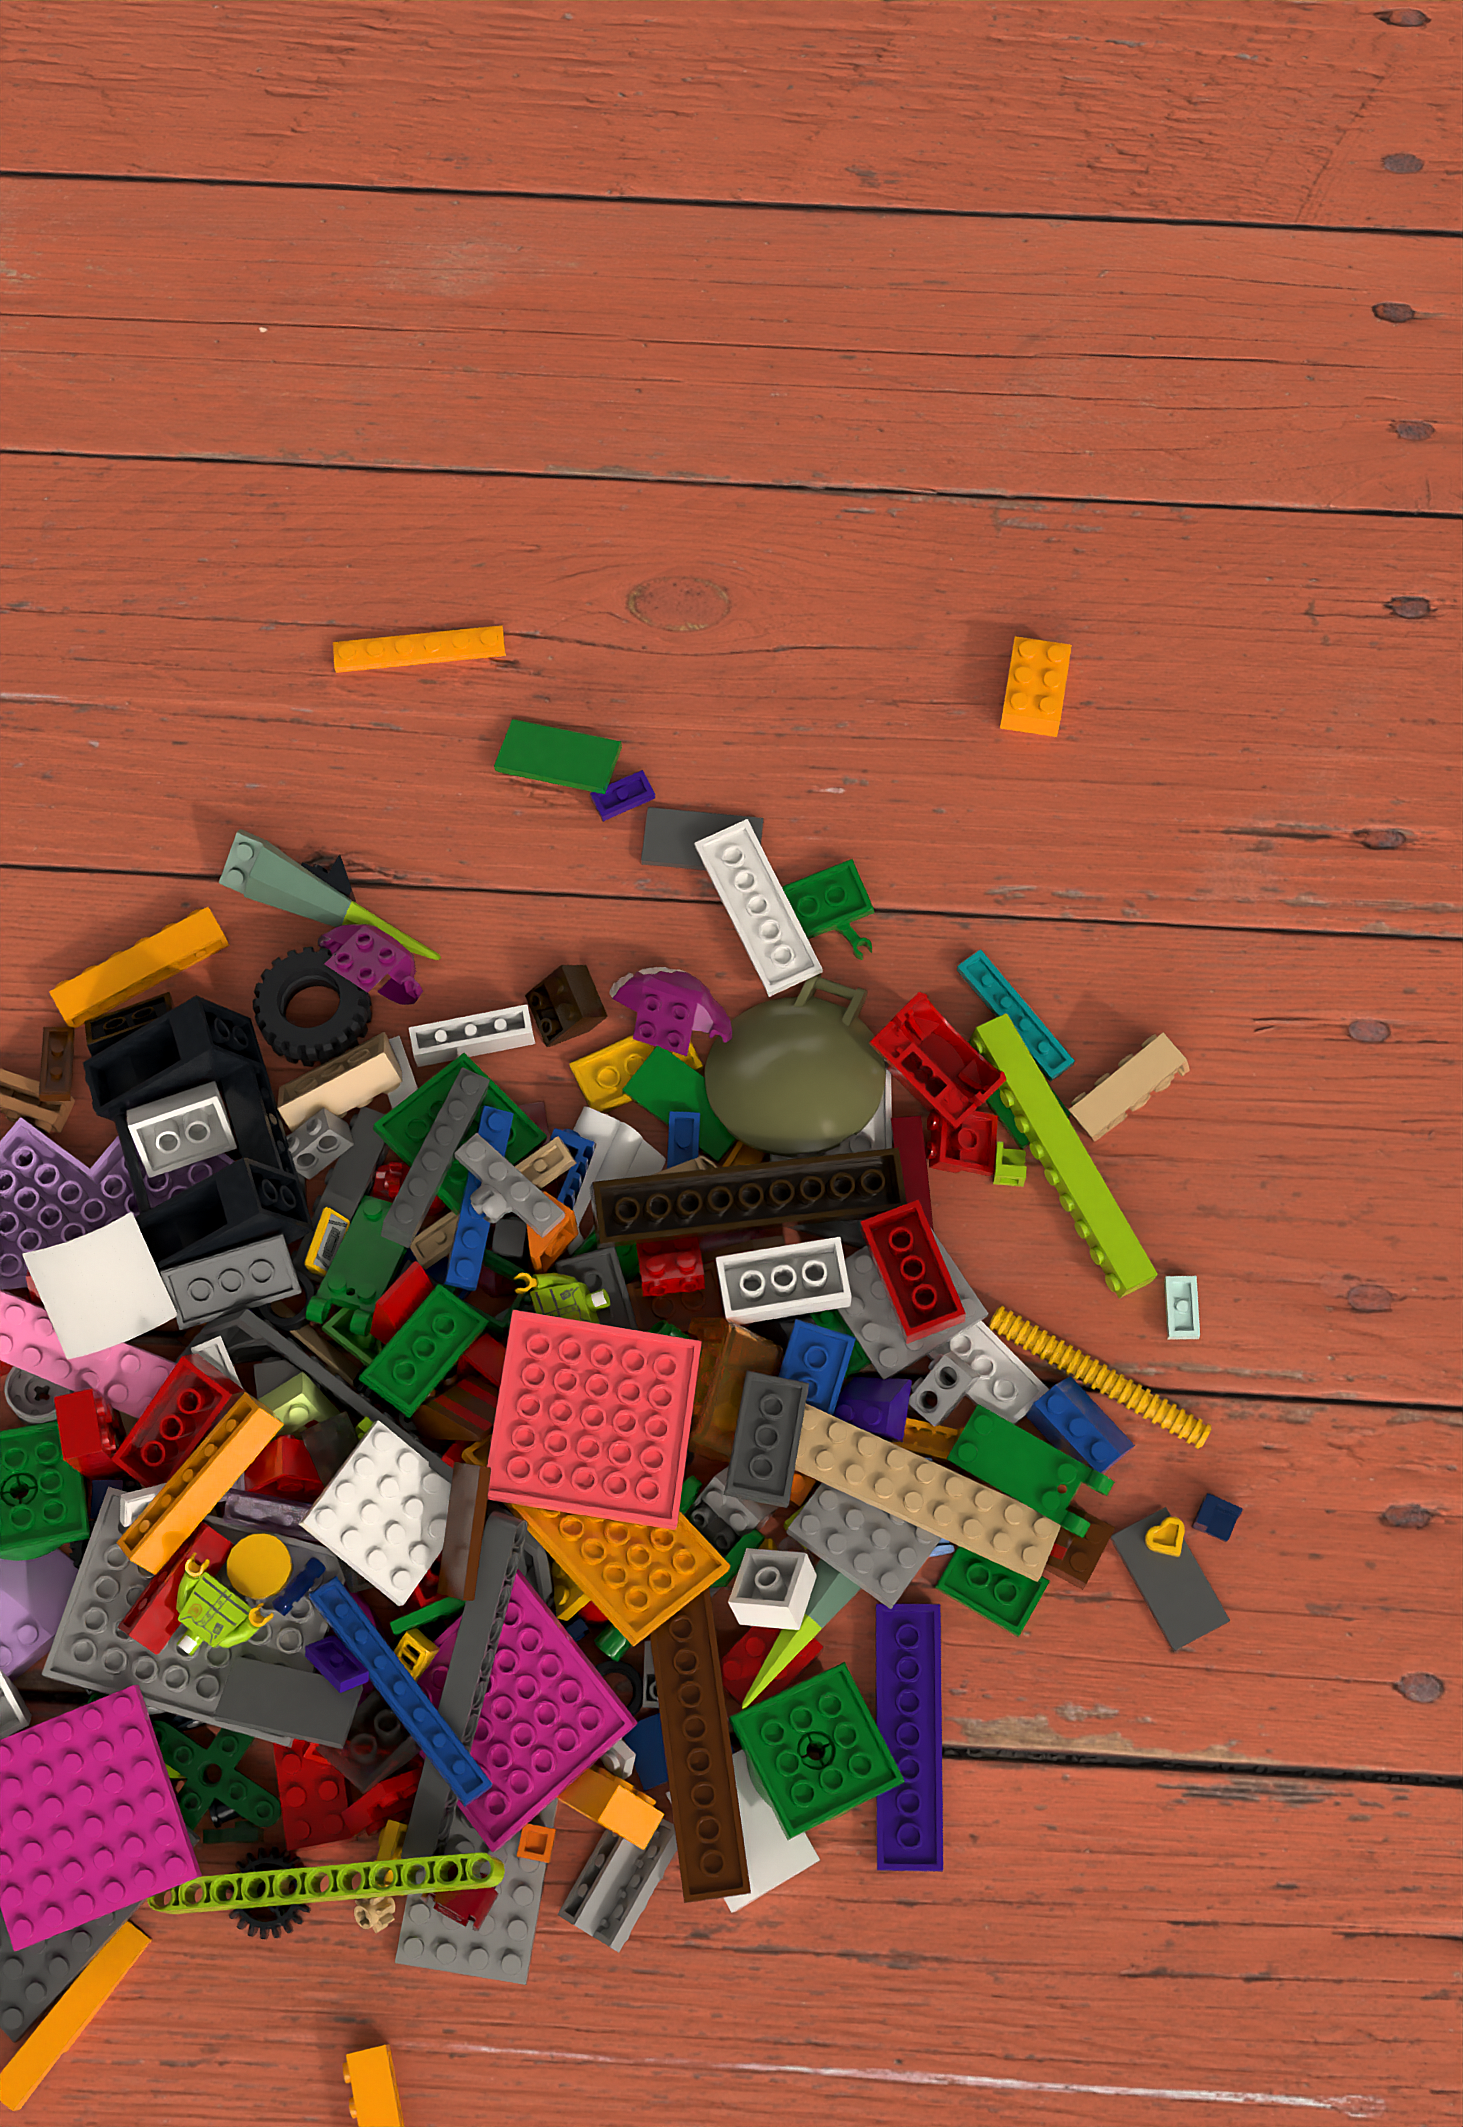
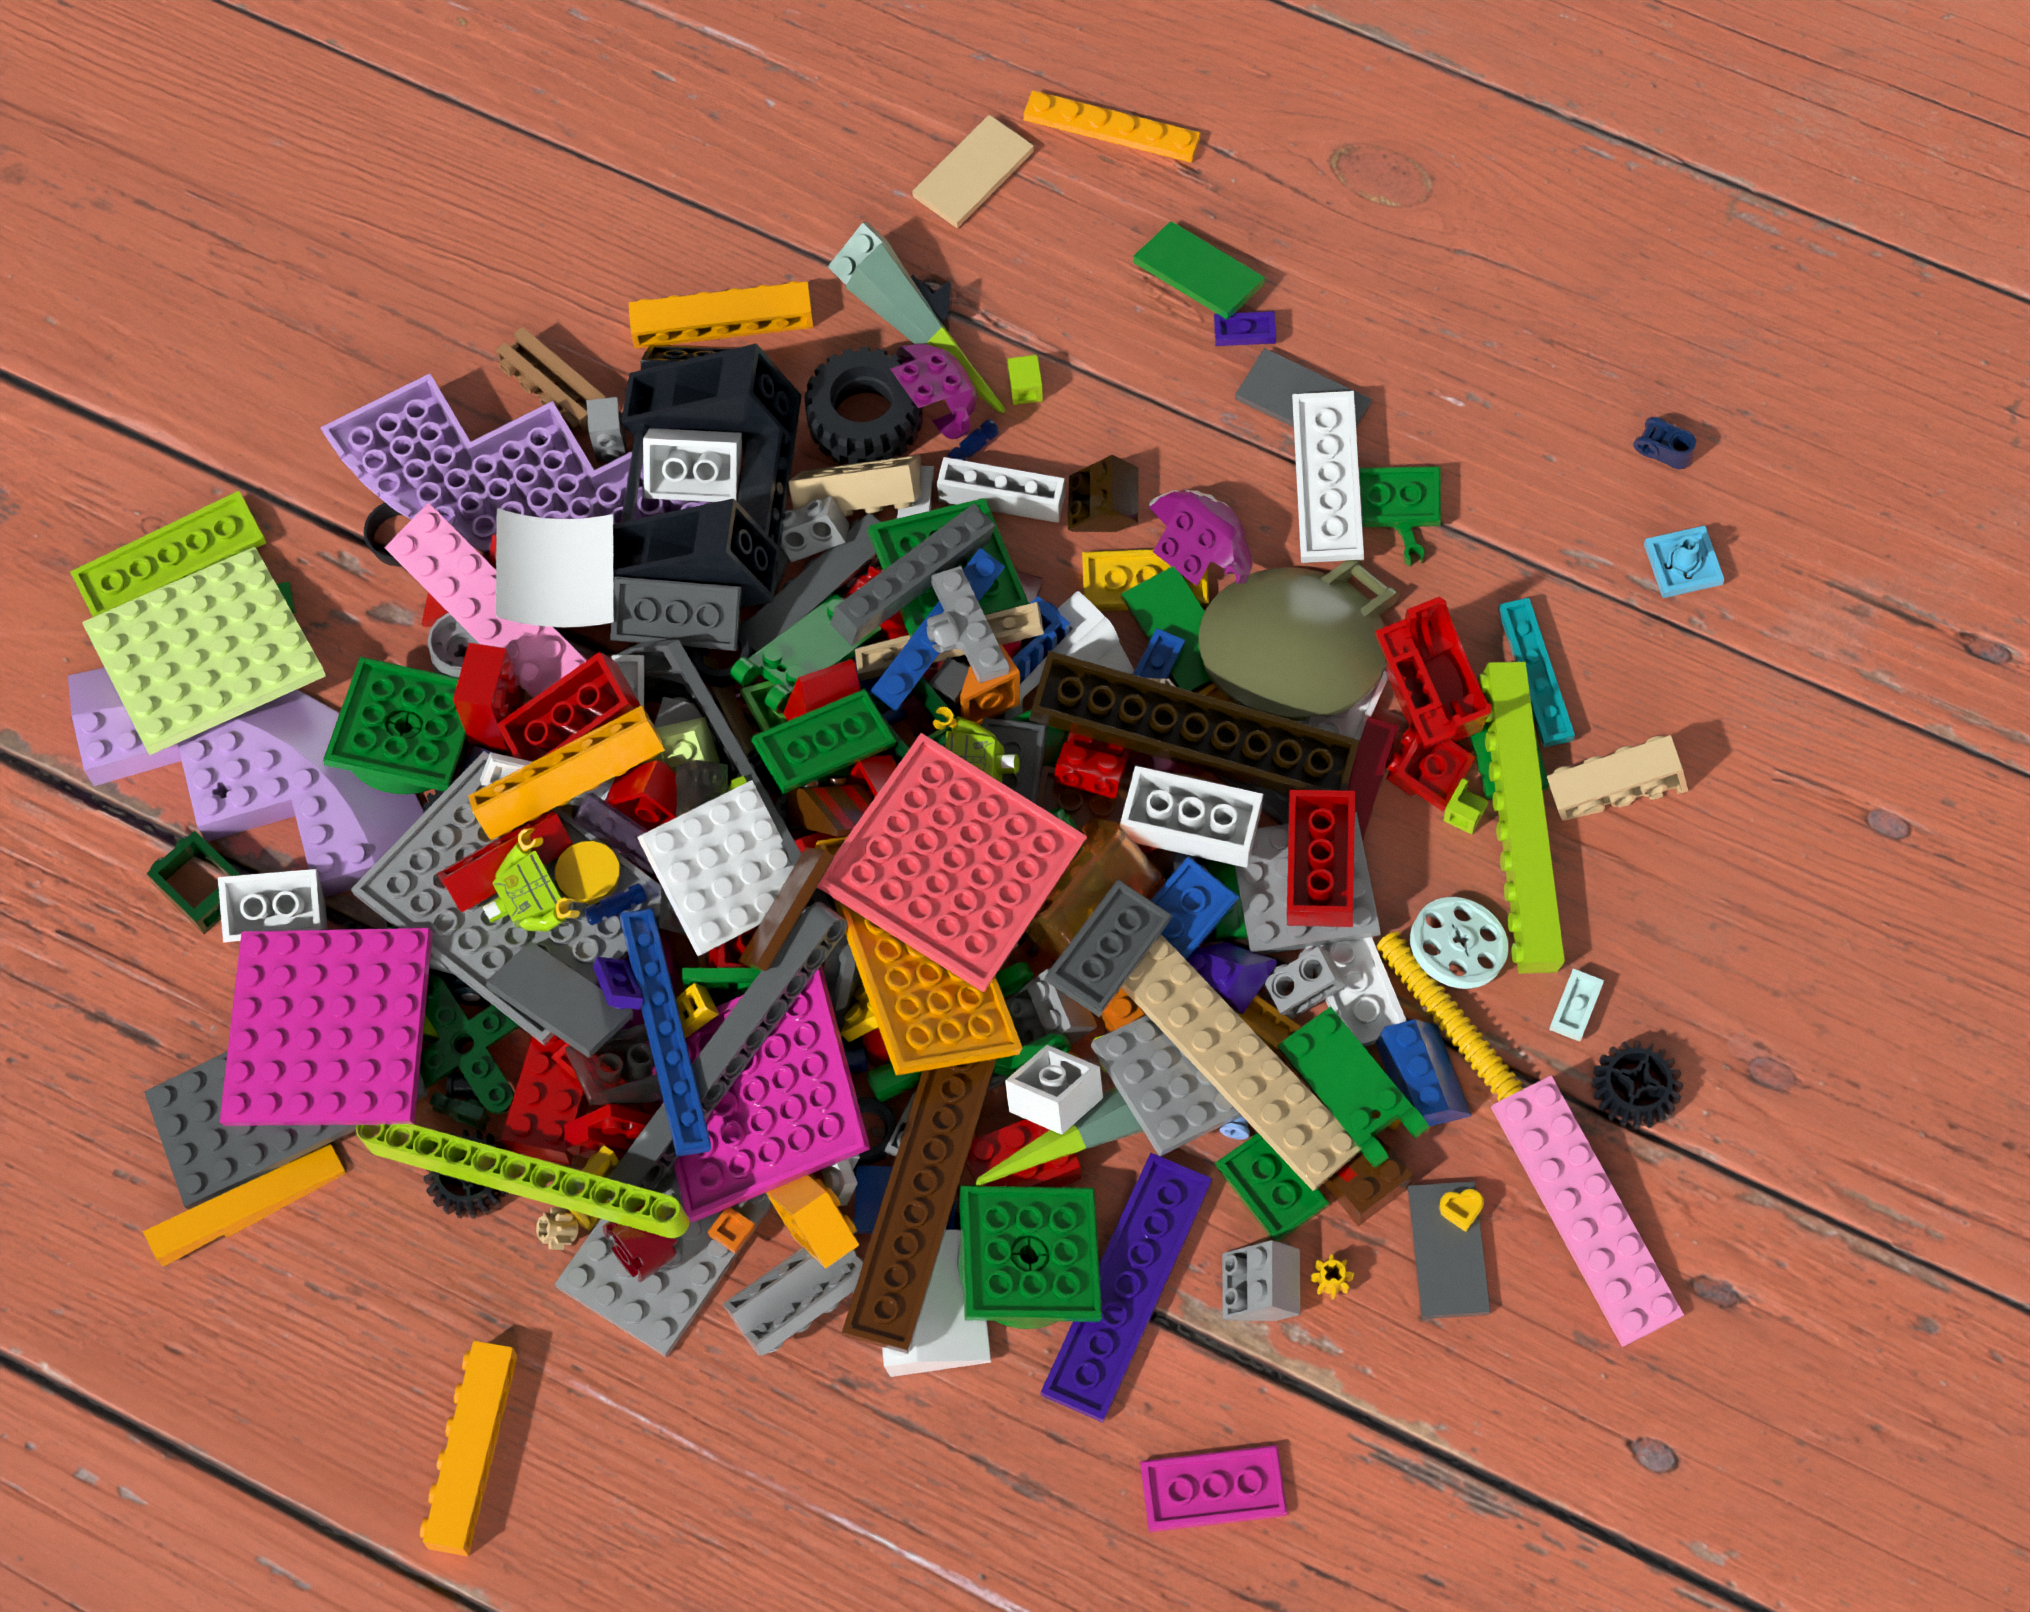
camera: 25 degrees right, 5 degrees down
(56, 1064) = (607, 368): reddish brown tile -> none
(83, 1123) = (606, 429): none -> light grey brick
(311, 739) = (973, 171): none -> tan tile
(326, 1241) = (780, 616): slope -> none
(423, 1004) = (974, 441): none -> clear blue axle
(447, 921) = (1025, 379): none -> lime panel
(1024, 1682) = (1261, 1282): none -> light grey slope
(1033, 759) = (1664, 442): none -> dark blue piece
(1035, 686) = (1697, 375): light orange brick -> none
(1061, 1280) = (1454, 953): none -> light aqua wedge
(1063, 1889) = (1213, 1488): none -> dark pink tile
(1091, 1646) = (1330, 1267): none -> yellow gear
(1104, 854) = (1681, 552): none -> medium azure plate
(1216, 1517) = (1521, 1211): dark blue panel -> none
(1251, 1360) = (1607, 1074): none -> black gear
(1273, 1494) = (1587, 1211): none -> bright pink plate

